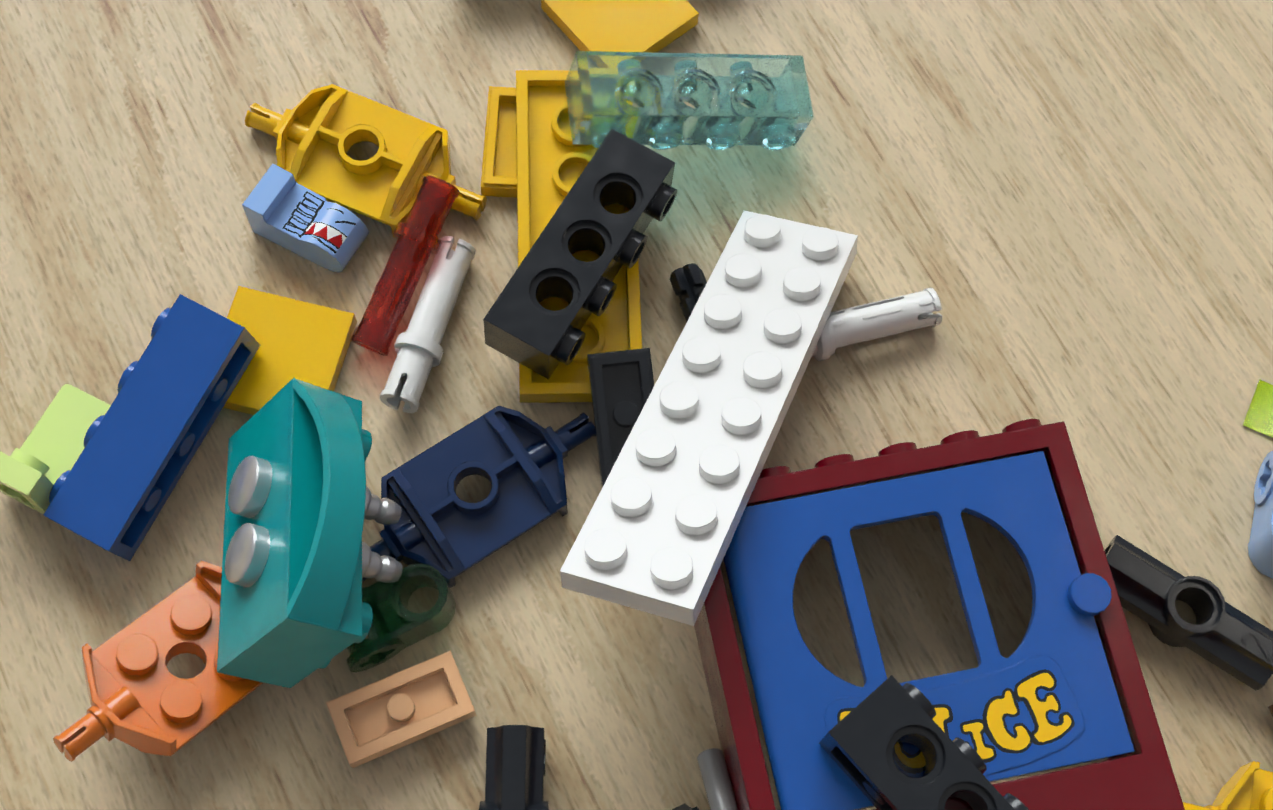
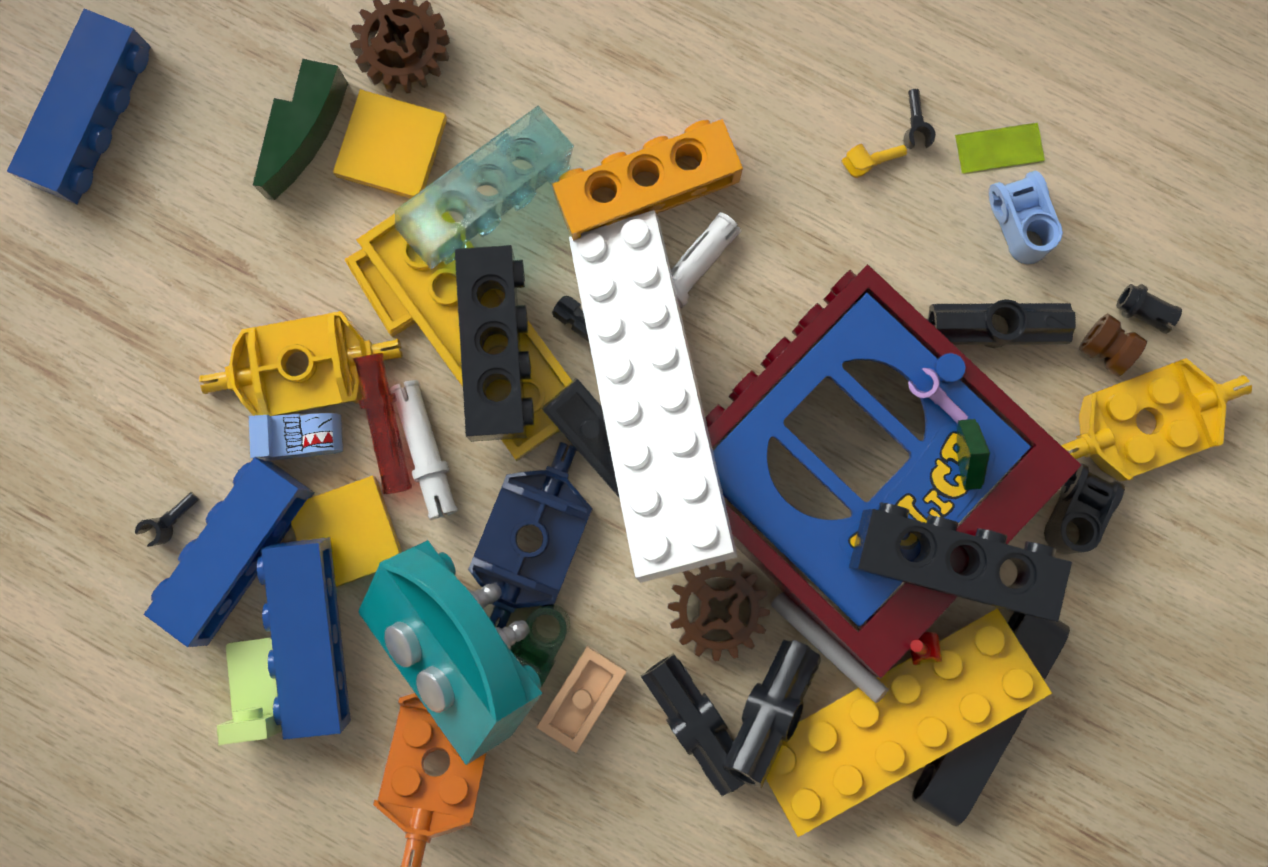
camera: 30 degrees left, 15 degrees up
(100, 224) = (164, 524): none -> black hand
(121, 292) = (224, 557): none -> blue brick
(663, 709) = (740, 589): none -> reddish brown gear
(890, 231) = (703, 140): none -> light orange brick
(1054, 705) = (971, 454): none -> dark green tile
(1055, 614) = (939, 397): none -> lavender hand
(1128, 339) = (860, 162): none -> yellow hand
(1222, 336) = (917, 122): none -> black hand

